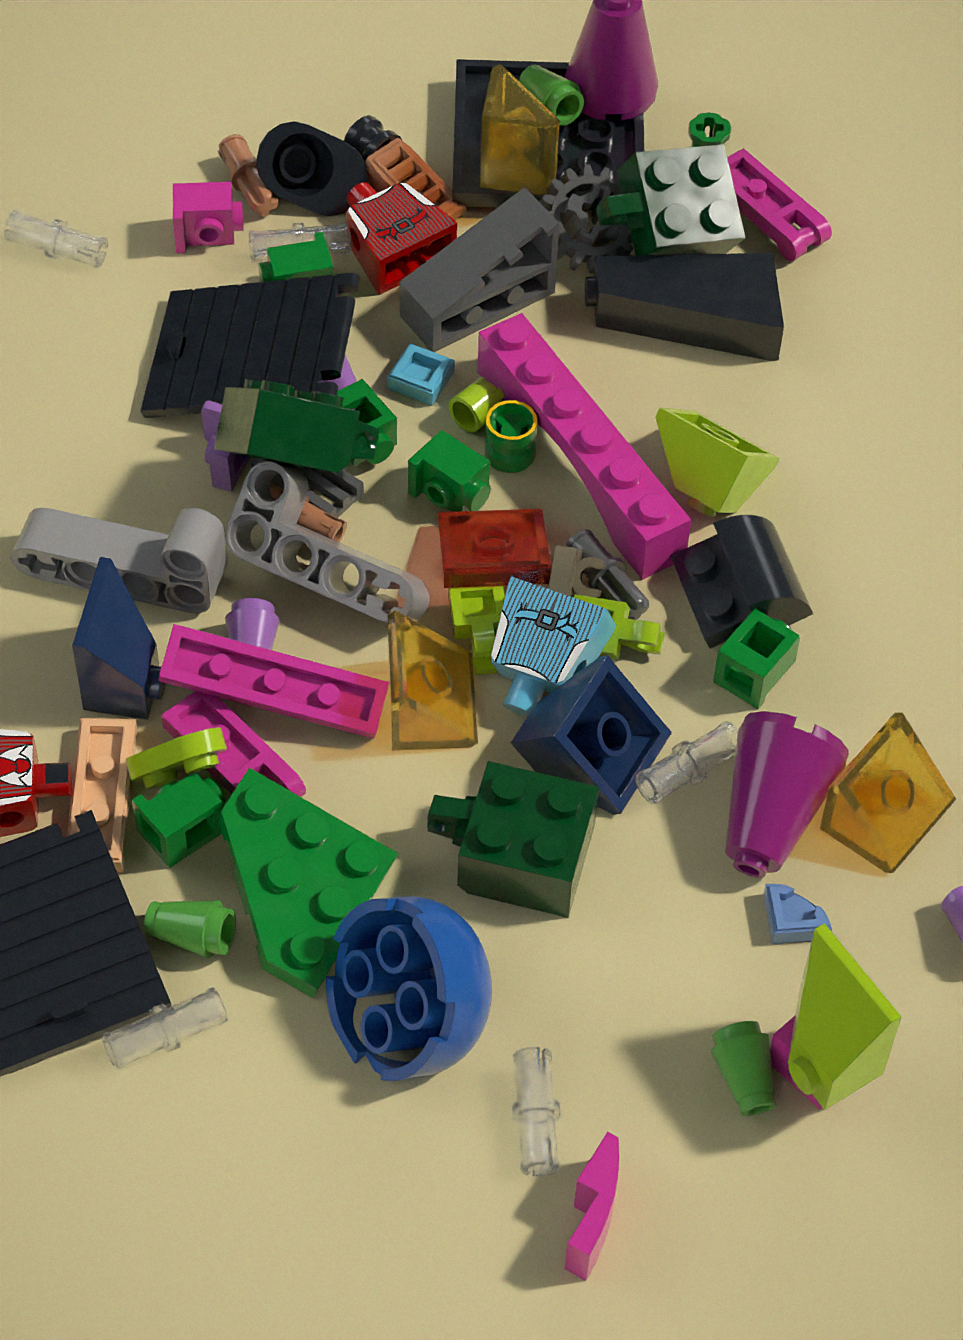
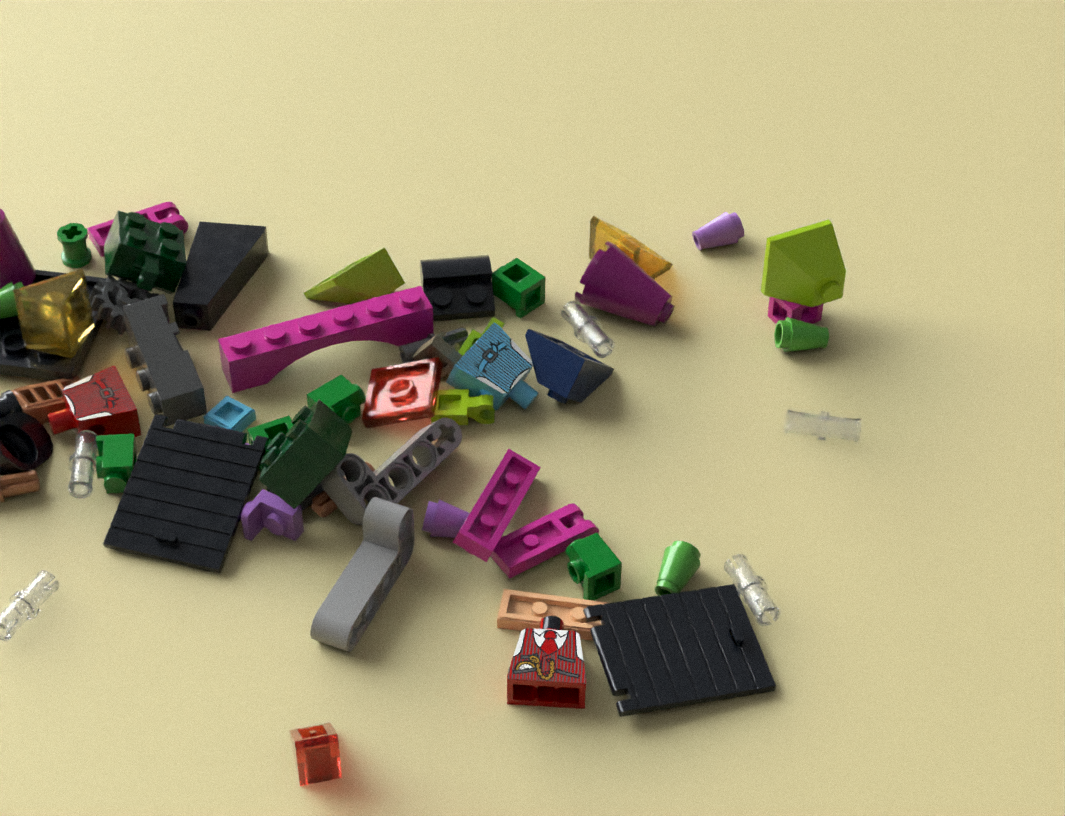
camera: 80 degrees left, 10 degrees down
(115, 650) = (449, 585): dark blue slope -> none
(192, 751) = (551, 556): lime plate -> none
(205, 214) = (37, 513): dark pink brick -> none
(297, 876) = (649, 510): green plate -> none
(429, 688) = (493, 439): clear yellow slope -> none
(431, 967) = (741, 446): blue cylinder -> none
(473, 403) = (272, 389): lime hose -> none
(510, 436) = (308, 370): green wheel -> none
(520, 836) = (637, 401): dark green hinge -> none
(596, 1198) = (880, 402): dark pink slope -> none
(791, 915) = (697, 308): medium blue tile -> none

